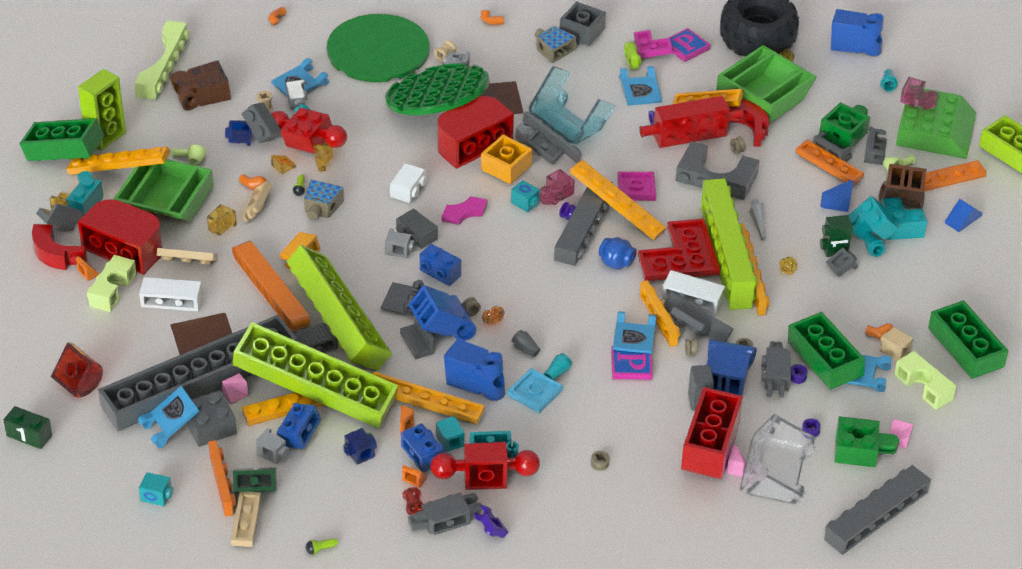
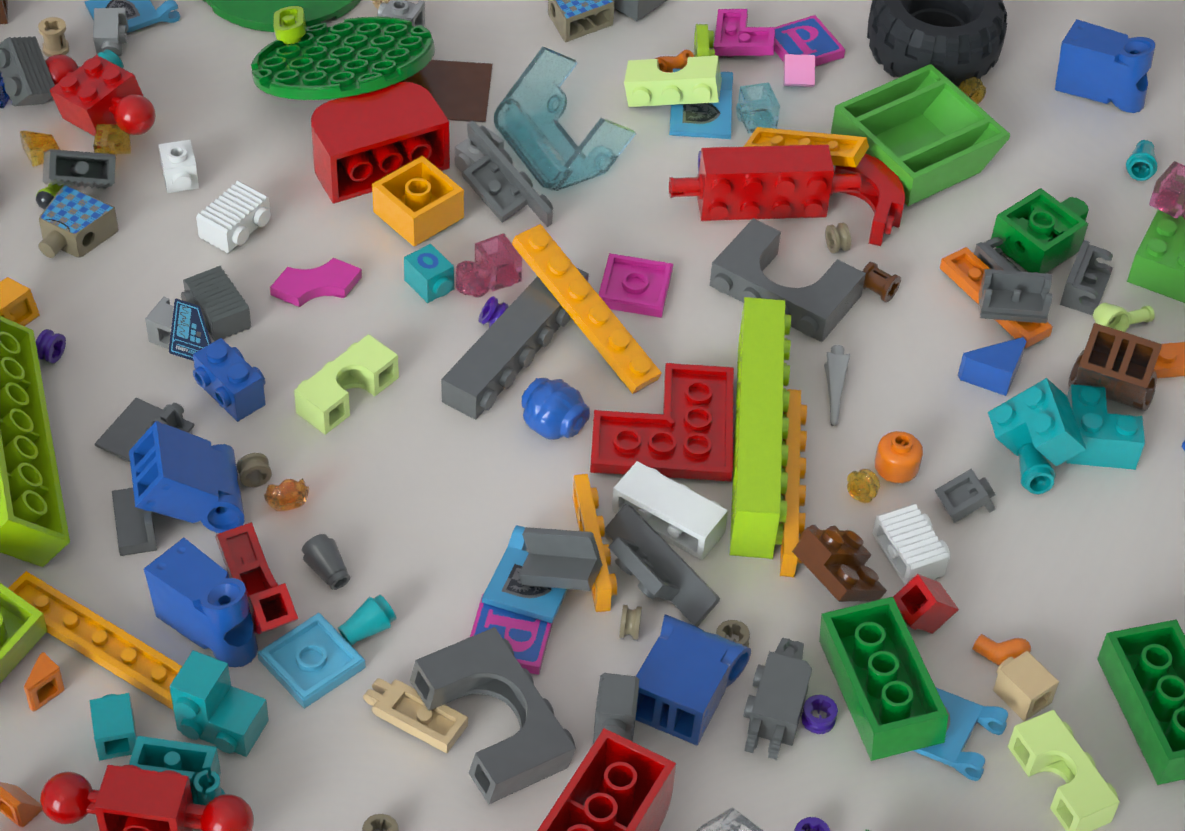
camera: 10 degrees right, 5 degrees up
(314, 169) = (79, 168): none -> dark grey brick
(337, 262) = (50, 345): none -> dark purple bush
(366, 161) = (178, 166): none -> white brick
(398, 75) = (289, 24): none -> lime plate
(410, 243) = (187, 330): none -> sticker
(420, 446) = (47, 742): blue brick -> none
(495, 264) = (324, 396): none -> yellowish green arch
(497, 416) = (213, 709): none -> teal brick
(512, 364) = (245, 561): none -> red arch
(598, 404) = (405, 709): none -> tan hinge
(613, 80) = (693, 84): none -> yellowish green arch
(614, 68) = (668, 63): none -> orange arm
(629, 376) = (489, 667): none -> dark grey arch
(648, 320) = (560, 559): none -> dark grey panel
(673, 82) = (757, 107): none -> clear light blue brick
(689, 59) = (799, 70): none -> bright pink tile
(767, 164) = (881, 282): none -> reddish brown bush
(788, 301) = (839, 563): none -> reddish brown plate
(803, 248) = (898, 457): none -> orange head
(821, 289) = (911, 543): none -> white brick
(836, 234) = (966, 442): dark green brick -> none
(837, 314) = (924, 604): none -> red brick
(841, 159) = (1015, 296): none -> dark grey hinge

